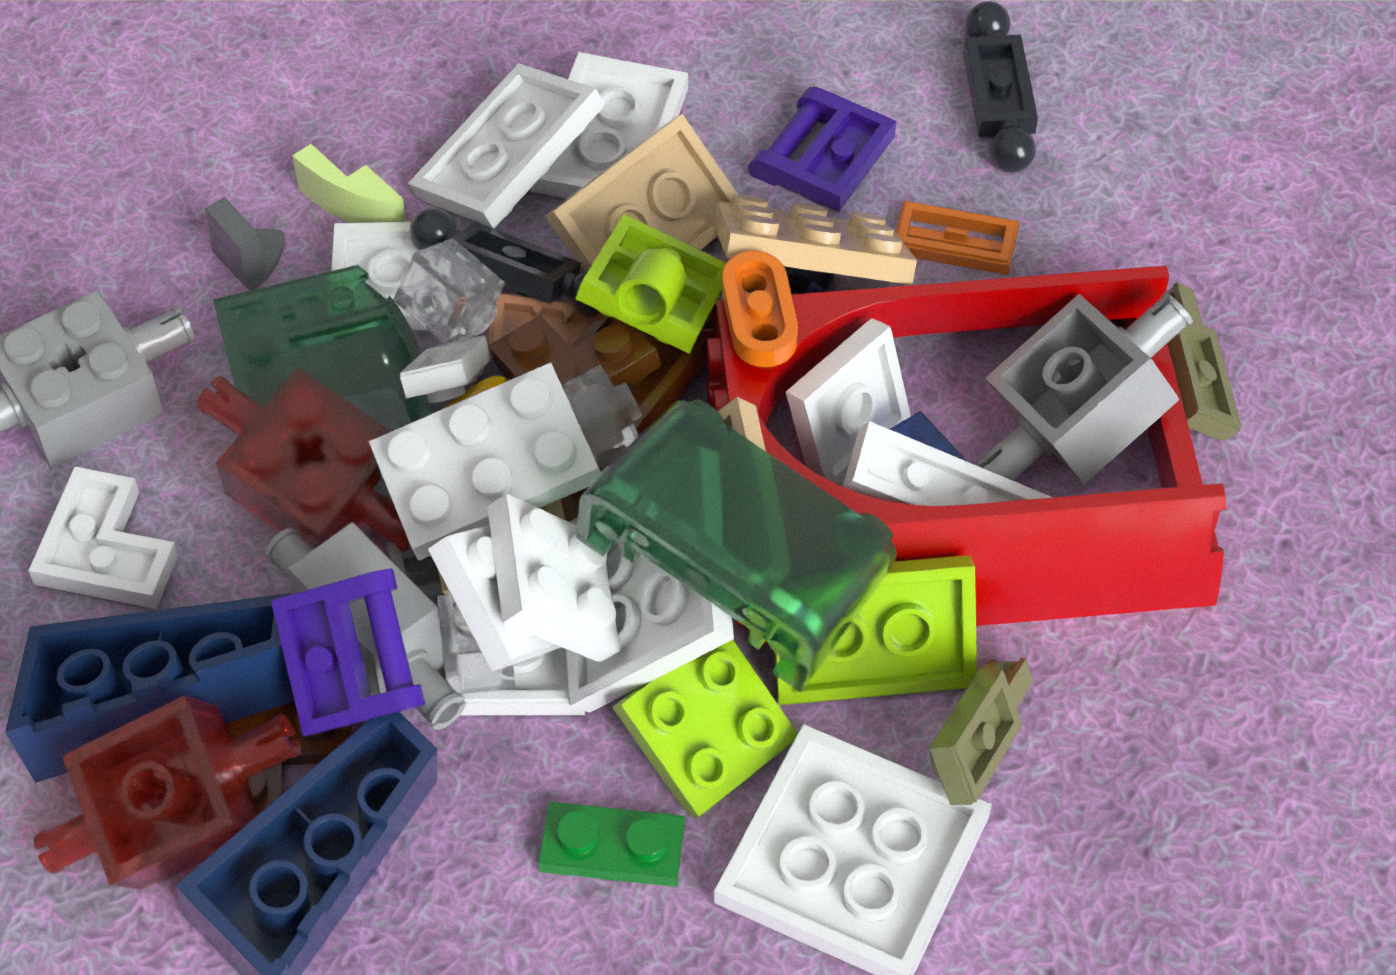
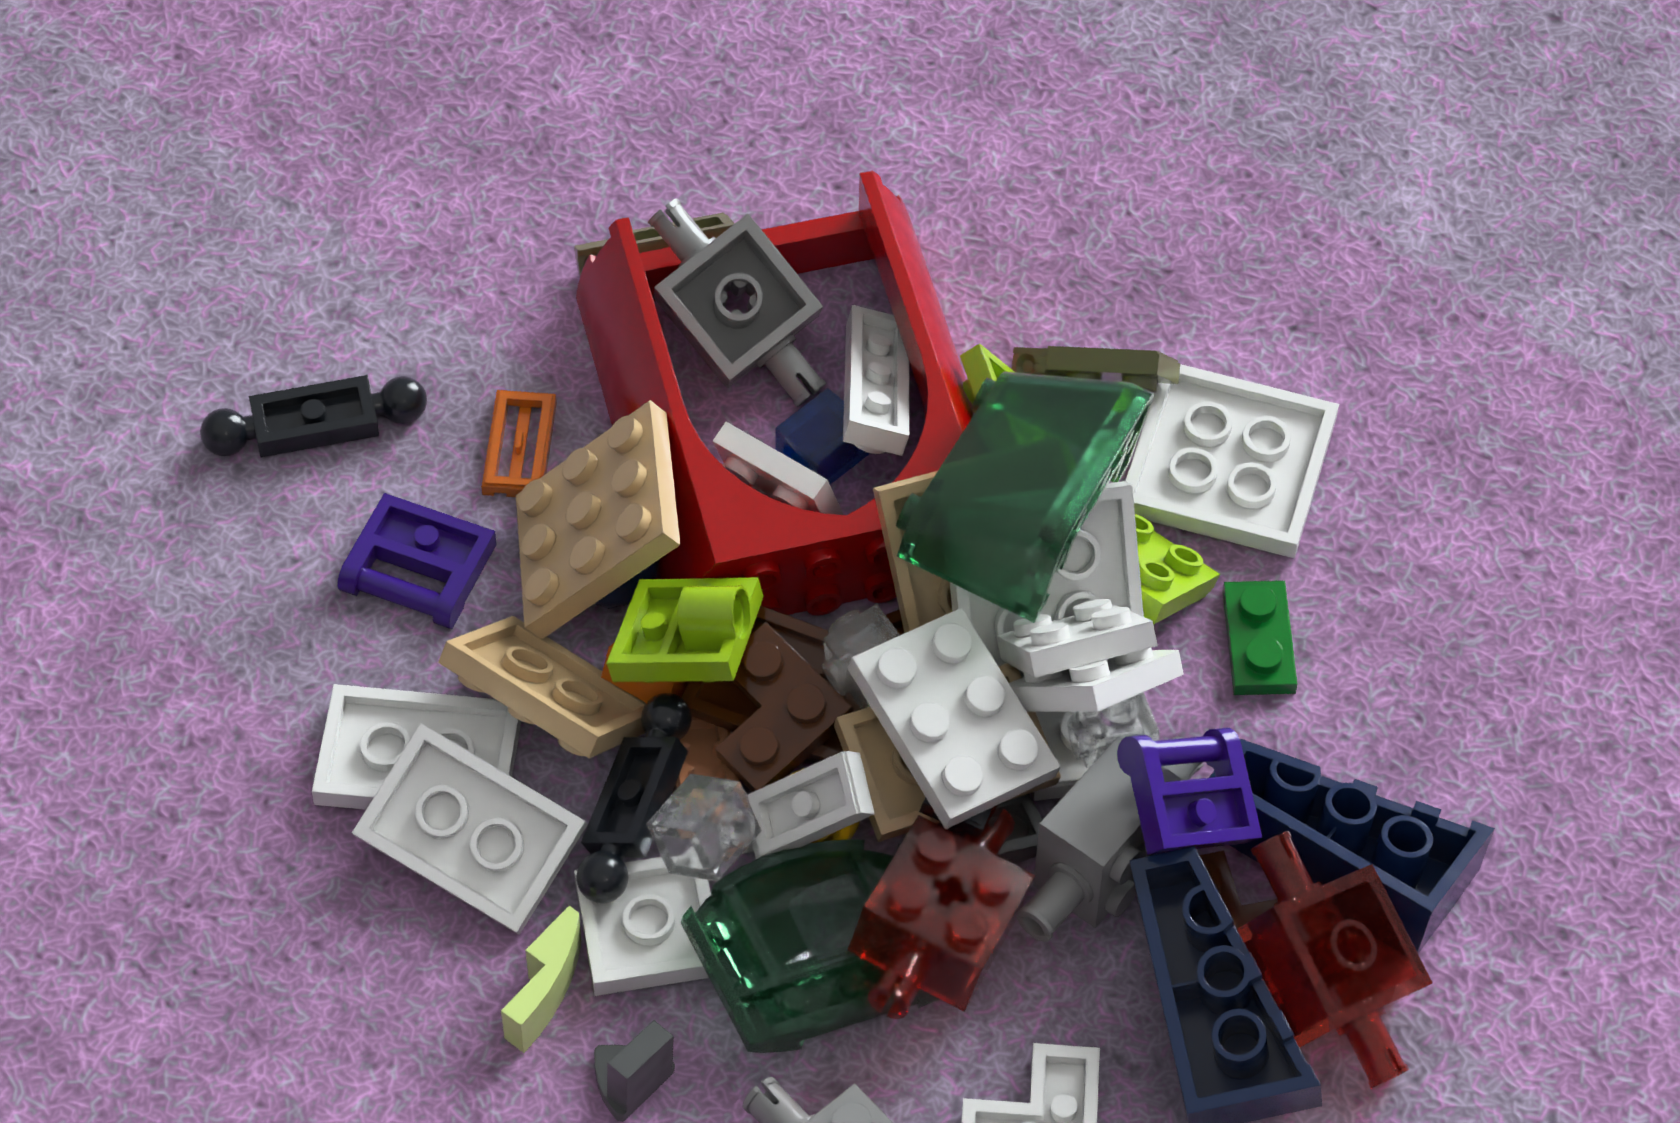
camera: 100 degrees left, 0 degrees up
(759, 314) = (737, 511): orange plate -> none

